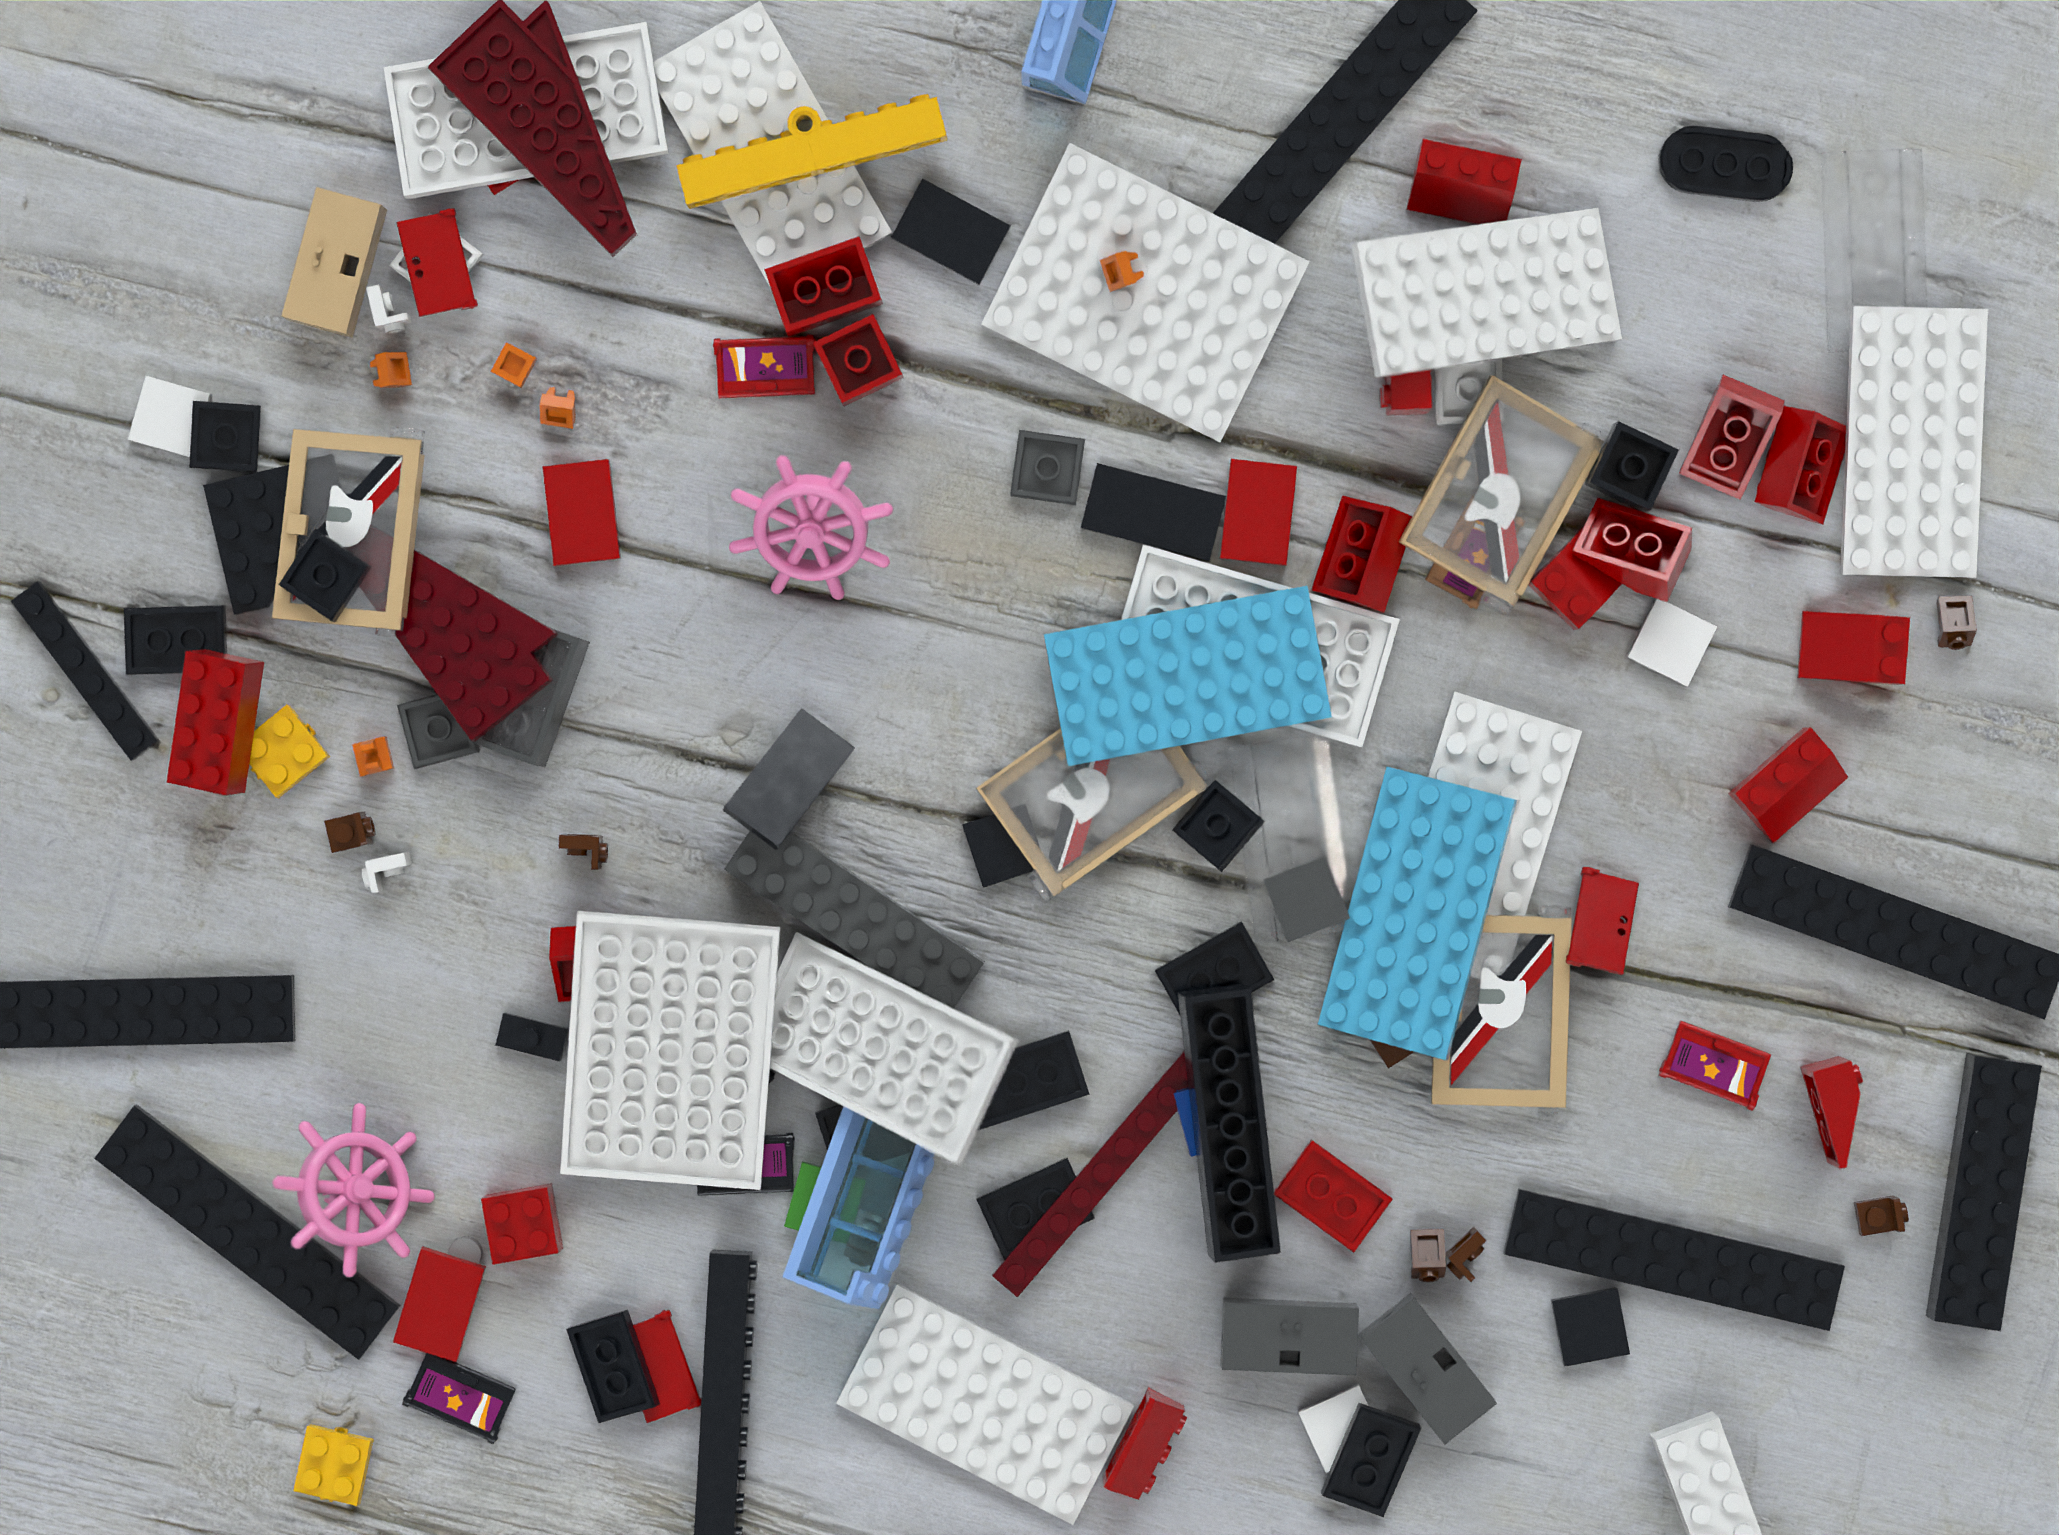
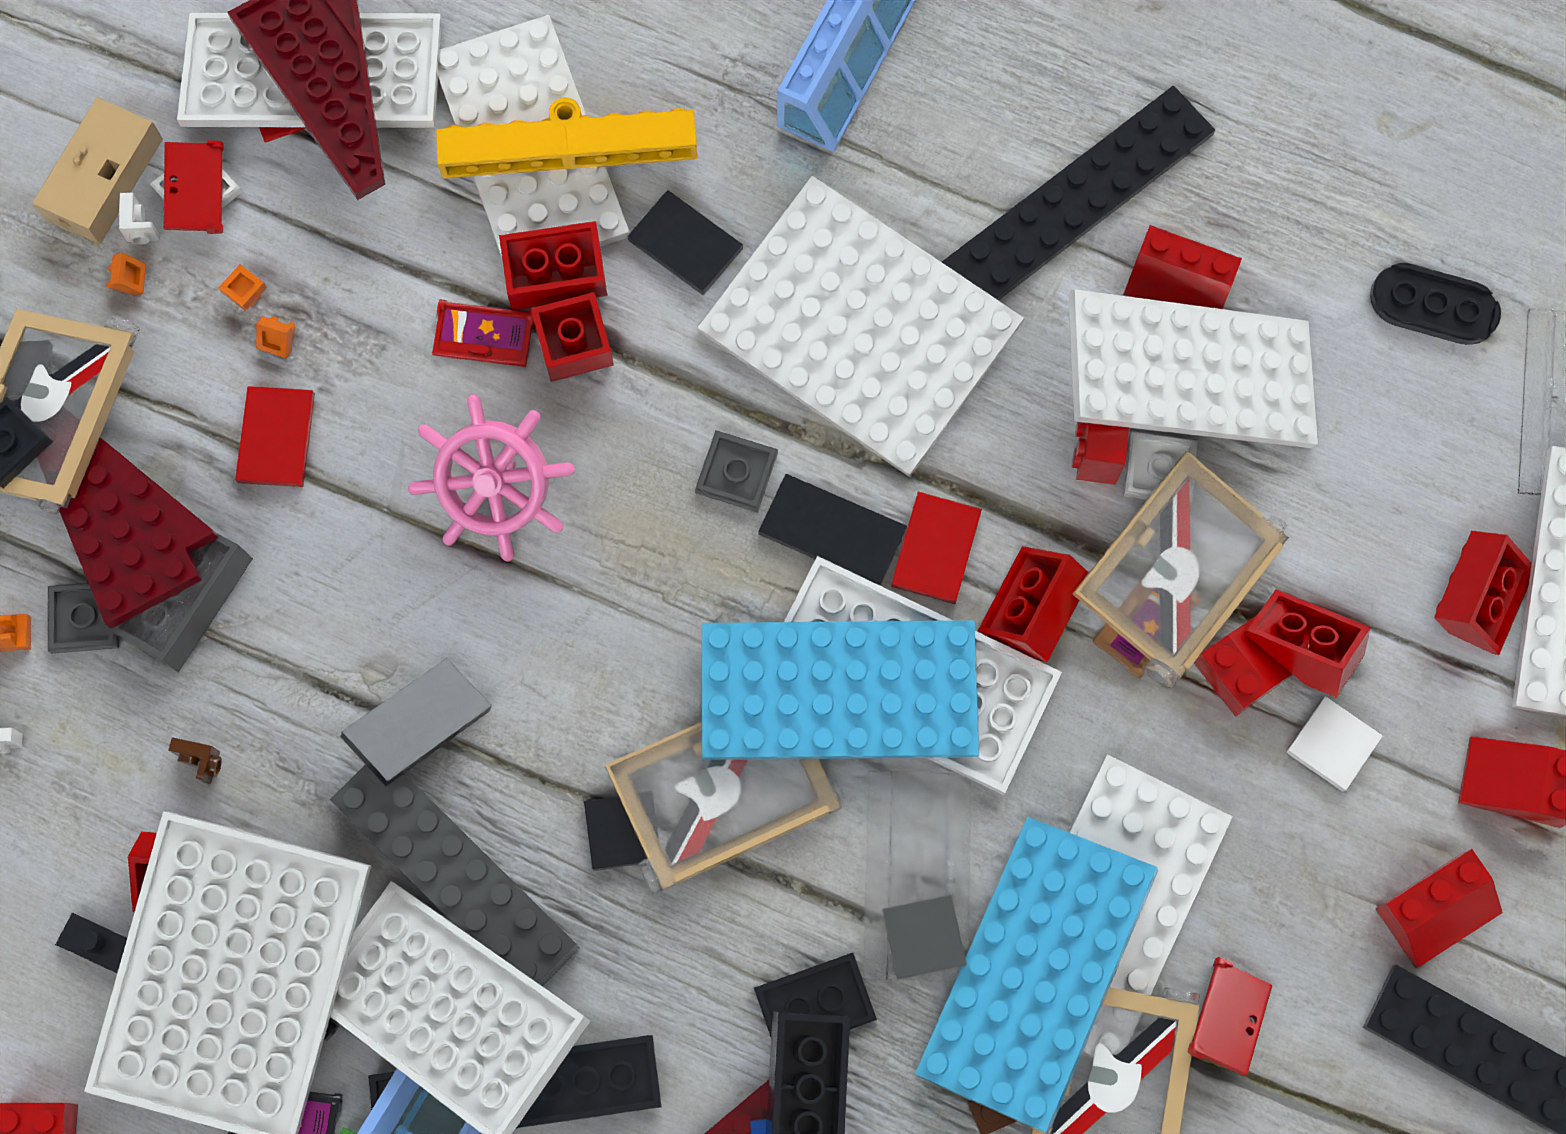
camera: 15 degrees right, 15 degrees down
(1119, 270) = (838, 292): orange tile -> none
(1218, 825) = (845, 847): black tile -> none
(1632, 467) = (1315, 562): black brick -> none
(1732, 436) = (1416, 554): red slope -> none

